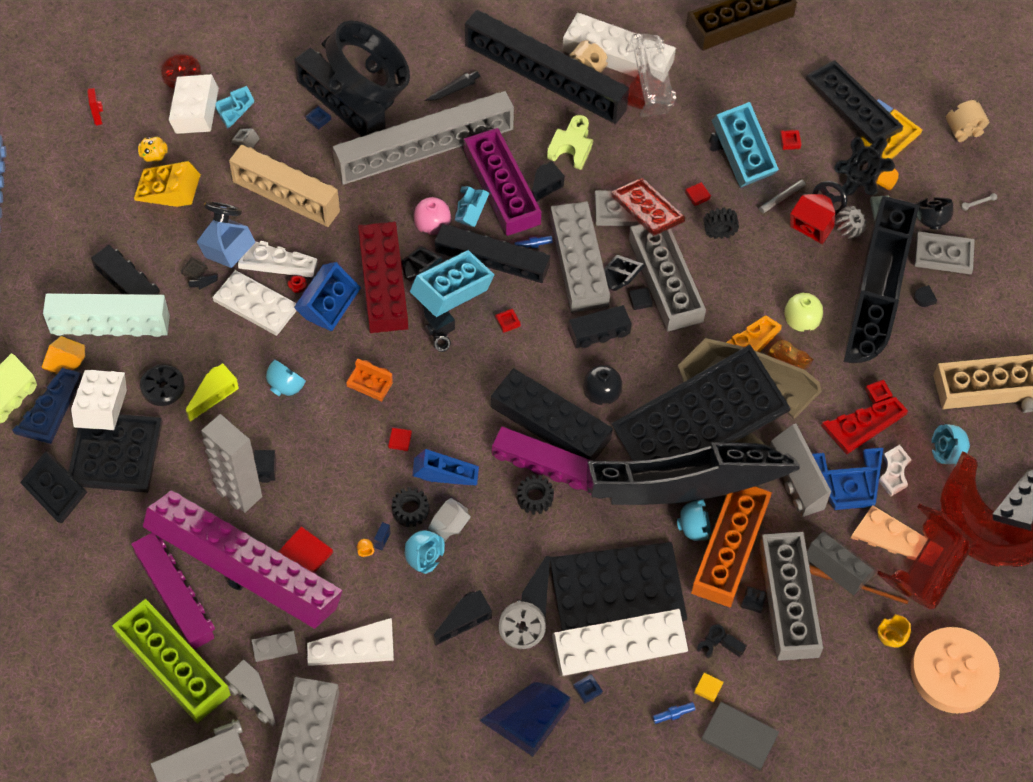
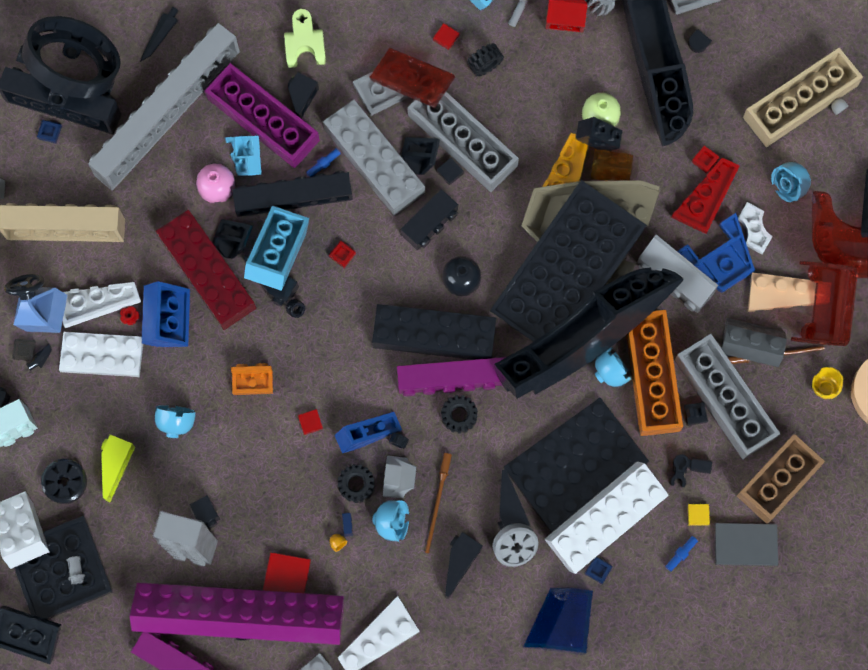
camera: 25 degrees left, 15 degrees up
(126, 455) = (75, 570): none -> light grey pin
(468, 490) = (398, 440): none -> black axle
(492, 538) = (443, 474): none -> dark orange piece
(790, 324) = (598, 134): none -> black brick
(803, 691) = (780, 479): none -> medium nougat brick

